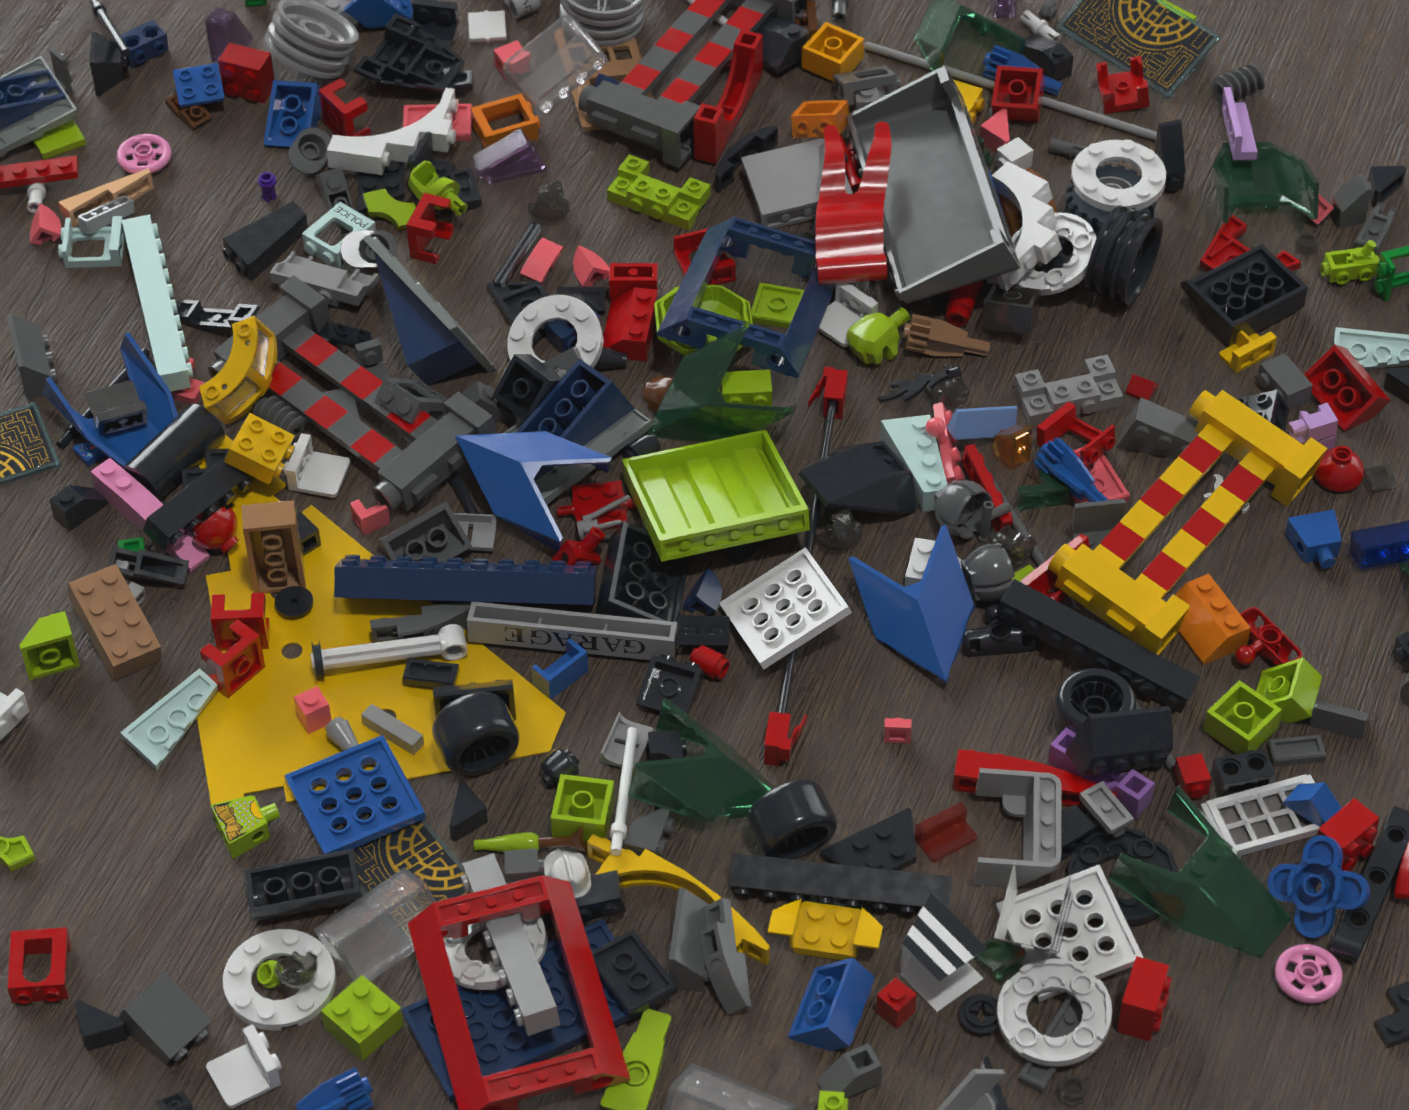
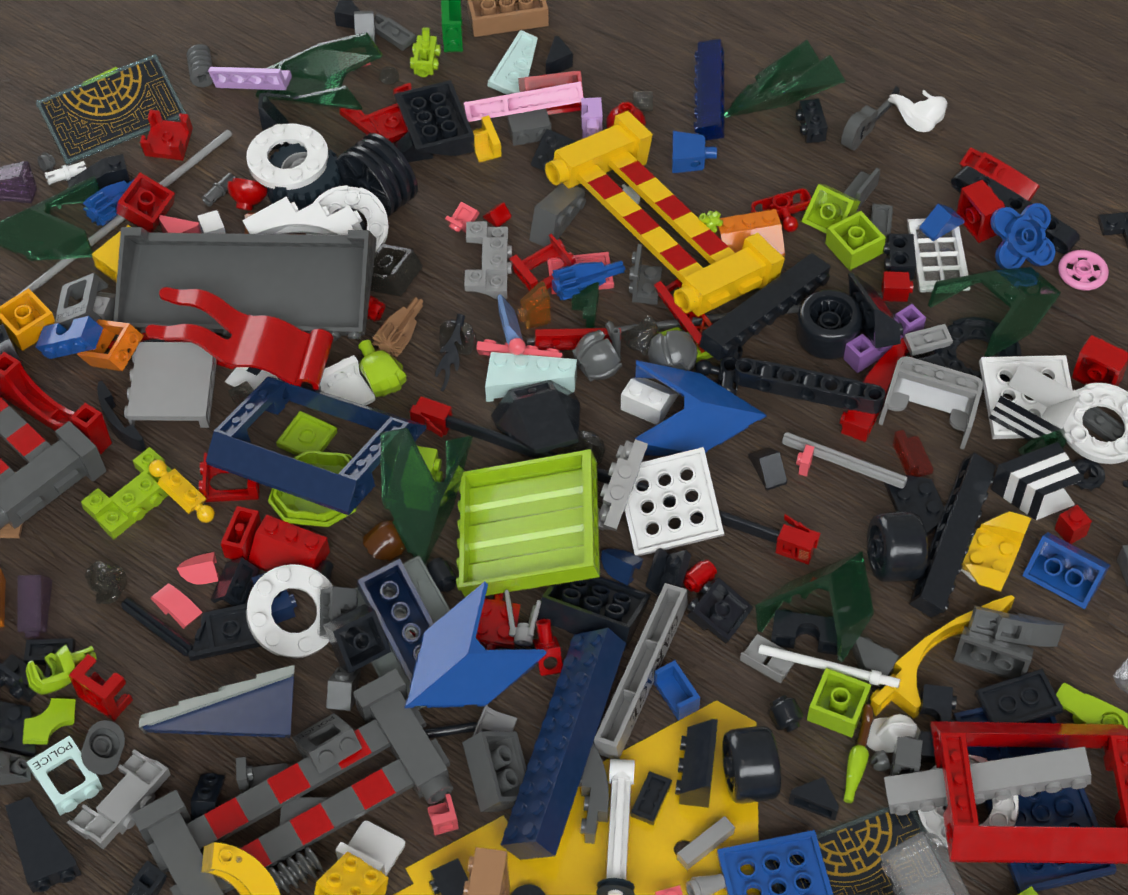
camera: 75 degrees left, 5 degrees up
(669, 224) = (181, 491): none -> yellow plate
(781, 552) = (621, 484): none -> light grey bracket
(815, 86) = (80, 337): none -> blue arch
(878, 699) = (769, 467): none -> black slope
(910, 767) = (846, 460): none -> light grey axle
(988, 697) = (809, 385): none -> black beam
(1063, 164) = (246, 193): none -> red piece
(1121, 356) = (463, 214): none -> coral bracket
(1200, 566) = (711, 220): none -> lime plant
(1307, 358) = (524, 101): none -> bright pink slope

